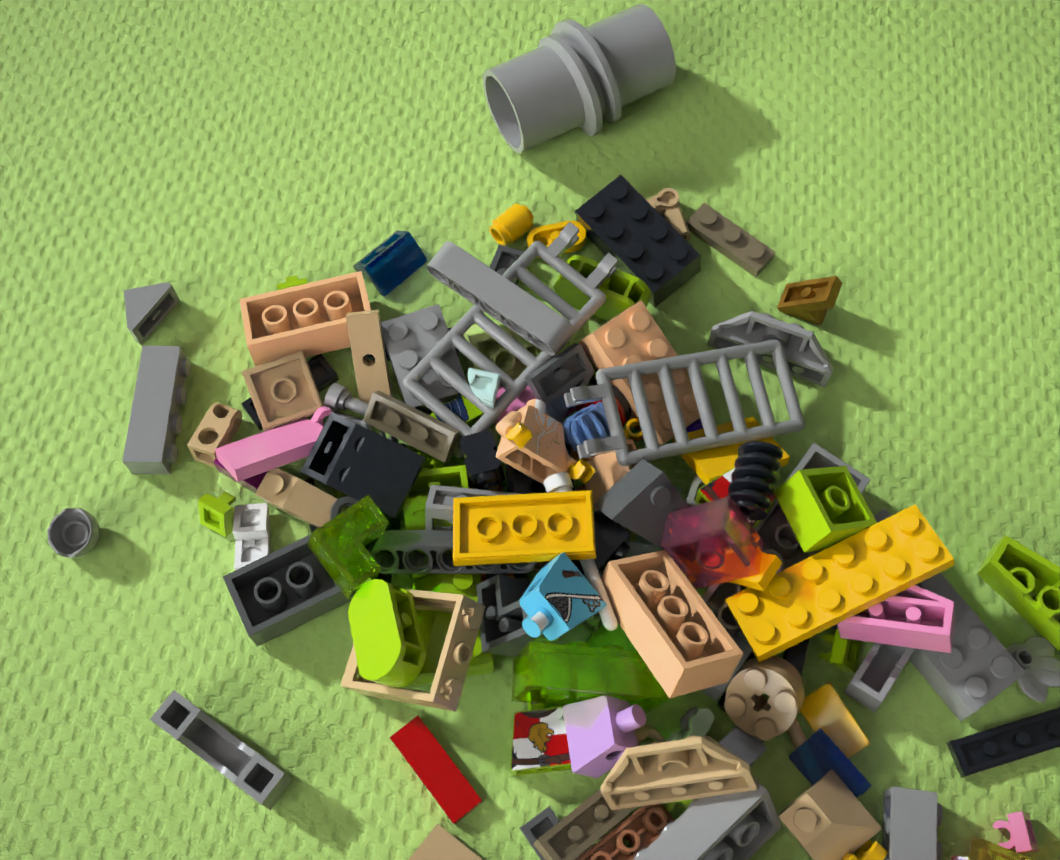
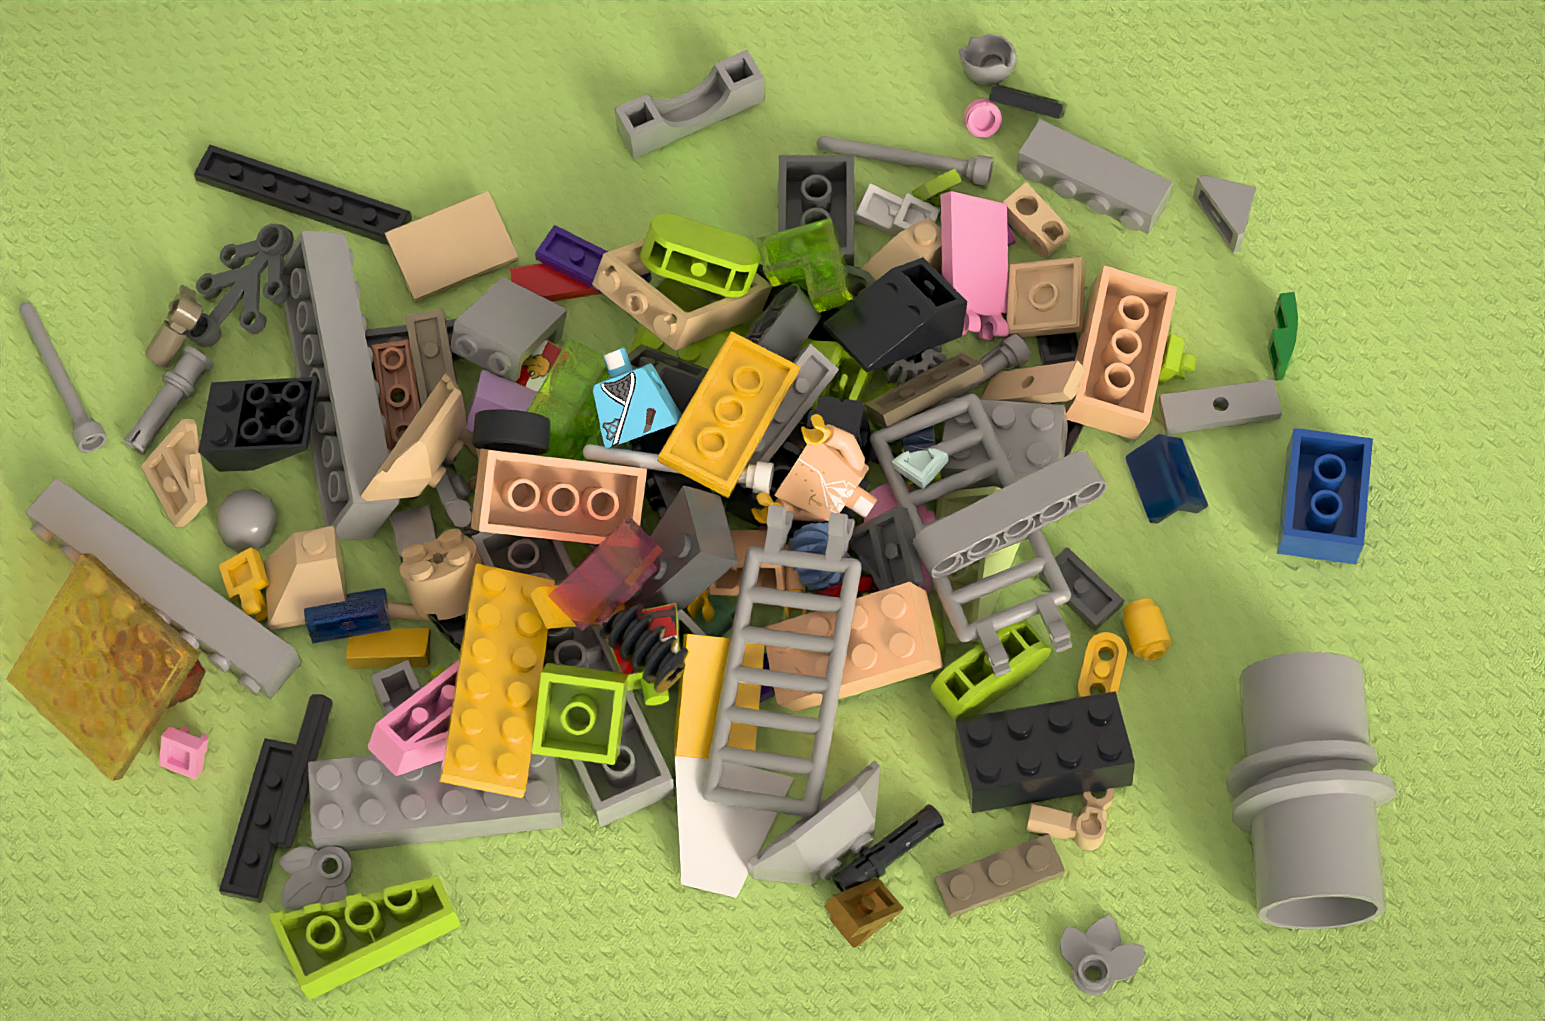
camera: 120 degrees right, 0 degrees up
(104, 485) = (1028, 101): none -> black tile
(133, 514) = (982, 118): none -> bright pink tile
(184, 497) = (975, 169): none -> light grey piece
(249, 229) = (1284, 338): none -> green slope
(314, 247) = (1241, 405): none -> light grey tile
(358, 159) = (1325, 496): none -> blue brick
(417, 755) = (572, 256): none -> dark purple tile
(520, 778) = (506, 328): none -> light grey panel
(643, 678) = (511, 431): none -> black tyre
(741, 164) = (1100, 950): none -> light grey plate
(750, 302) = (875, 859): none -> black pin
(823, 410) = (721, 837): none -> white sticker
(970, 728) = (297, 778): none -> black axle

